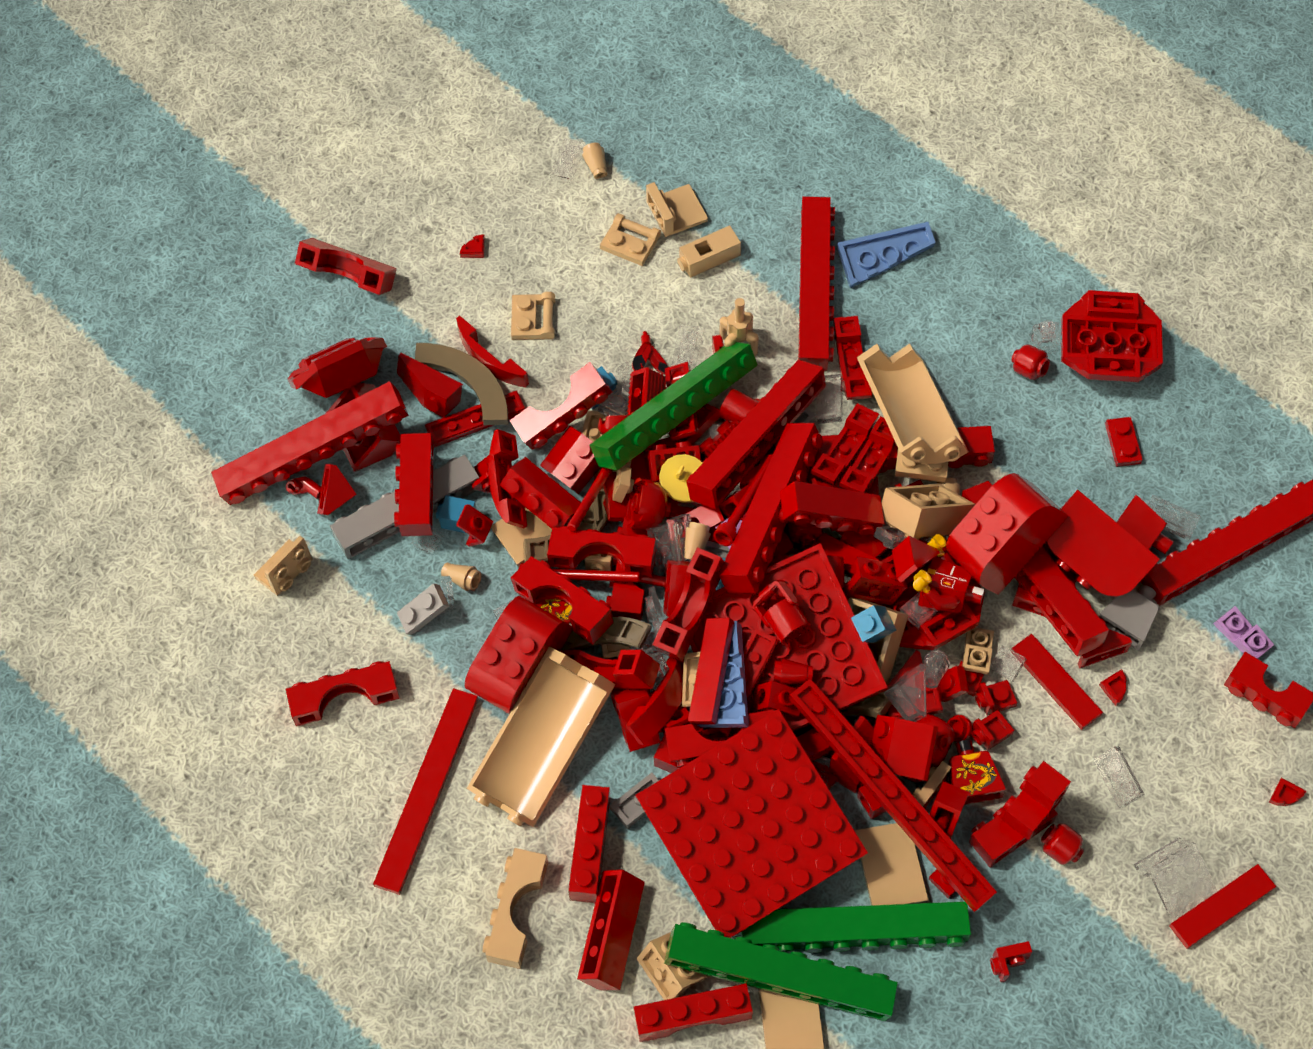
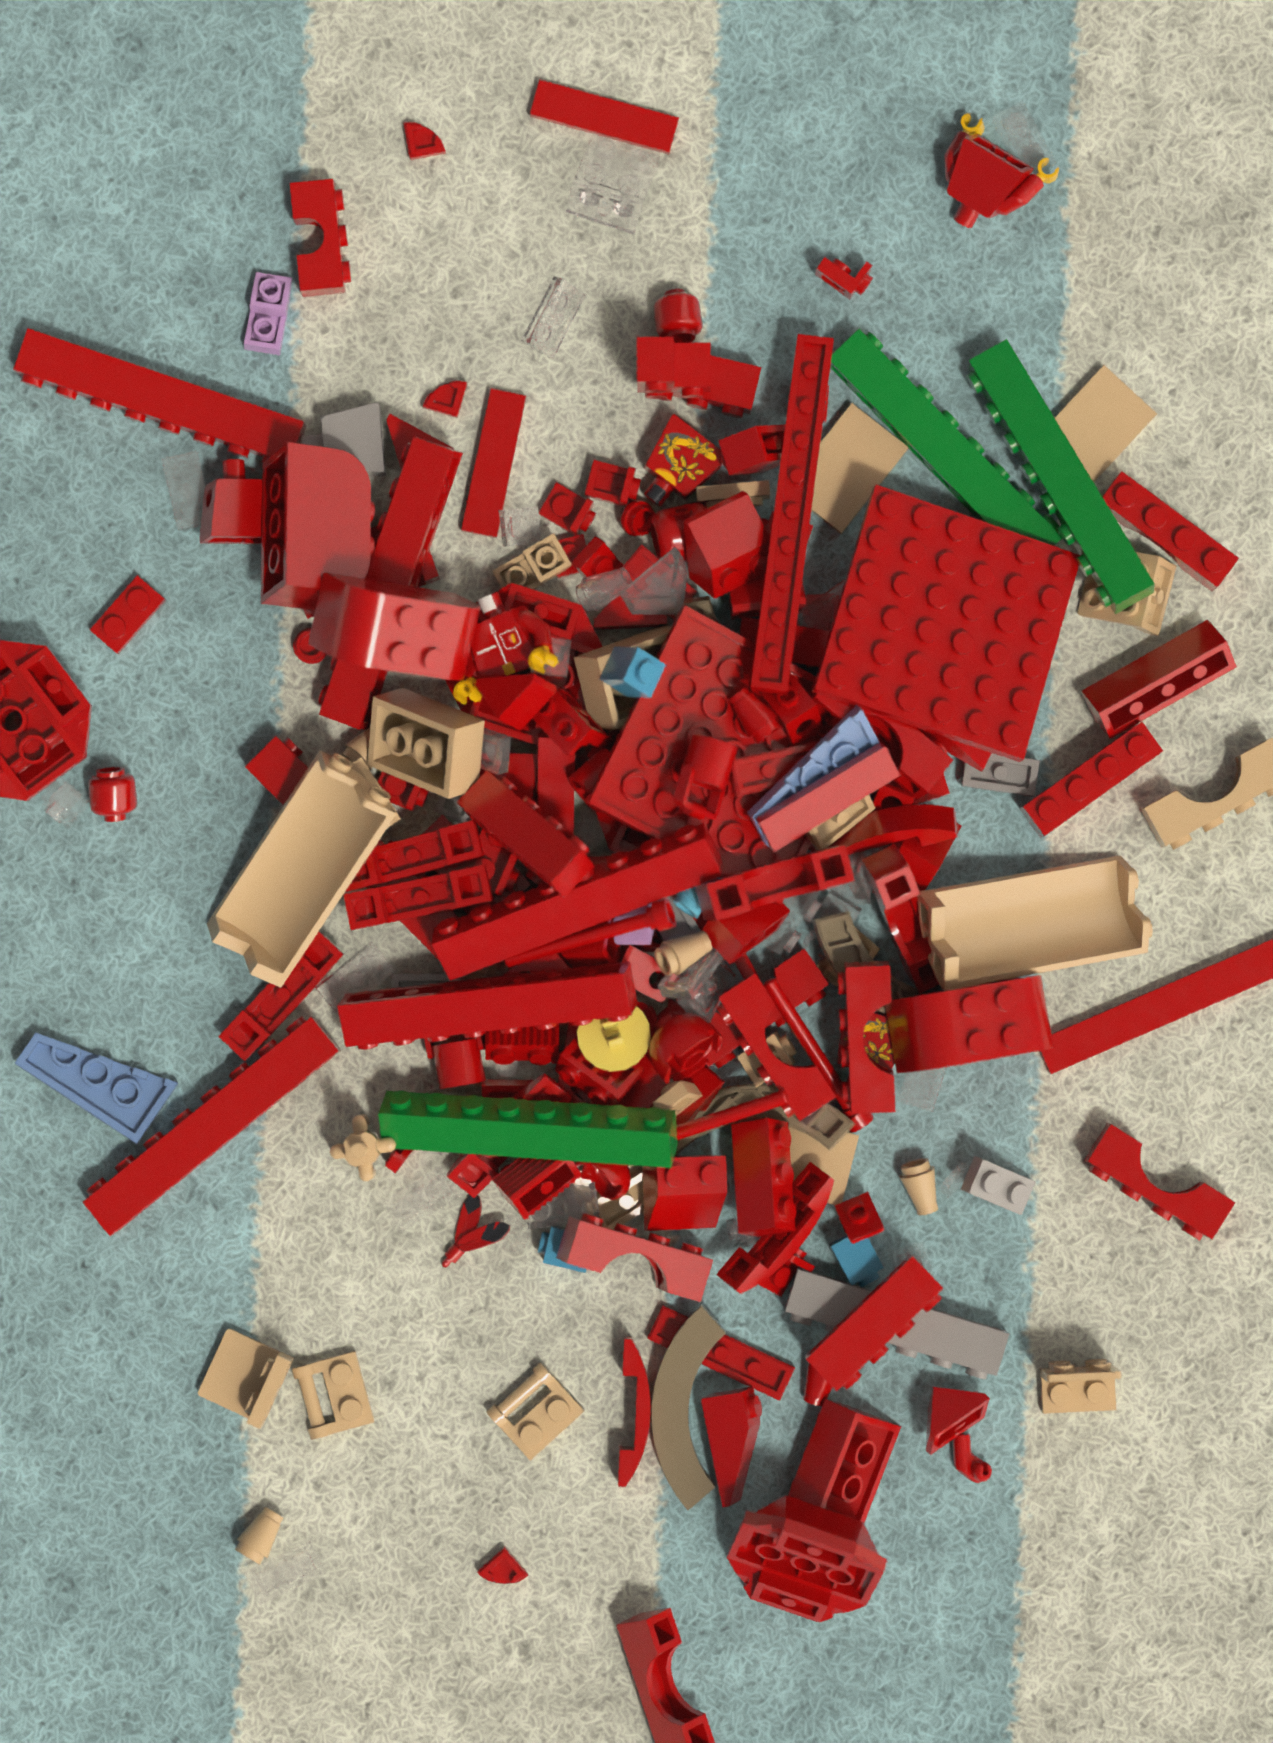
camera: 135 degrees left, 25 degrees up
(309, 443) = (927, 1487): red brick -> none
(709, 251) = (275, 1283): tan brick -> none

